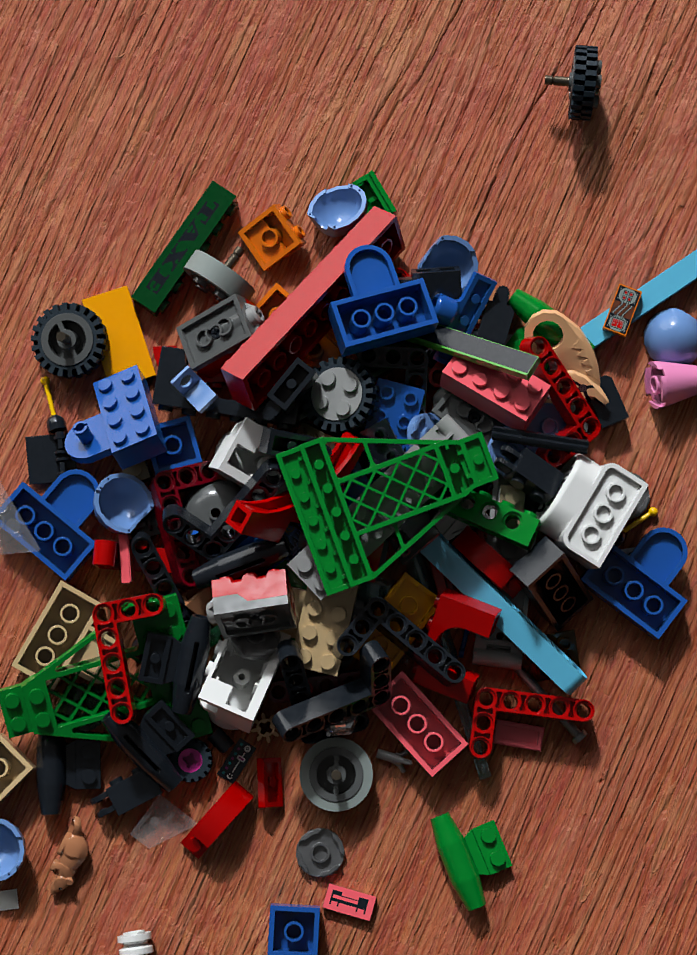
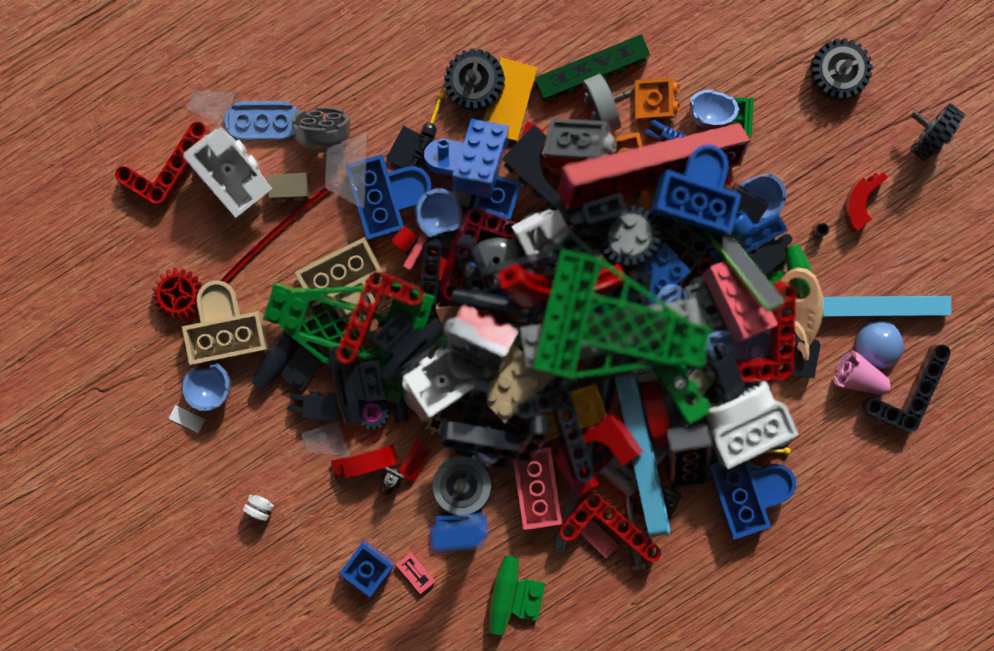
camera: 35 degrees right, 5 degrees up
(72, 854) = (255, 422): nougat animal -> none
(195, 391) = (536, 169): medium blue bracket -> none
(236, 761) = (402, 431): black sticker -> none
(258, 818) = (391, 478): none -> dark brown hinge
(307, 264) = (666, 134): none -> blue hinge
(320, 852) = (416, 527): flat silver tile -> none
(362, 819) = (459, 530): none -> blue arch
(395, 758) = (508, 500): light grey bar -> none
(442, 83) = (841, 69): none -> wheel
(533, 253) = (825, 230): none -> black hinge
(540, 440) = (745, 356): black axle -> none
(550, 210) = (855, 203): none -> red arch
(622, 310) = (858, 304): tile -> none

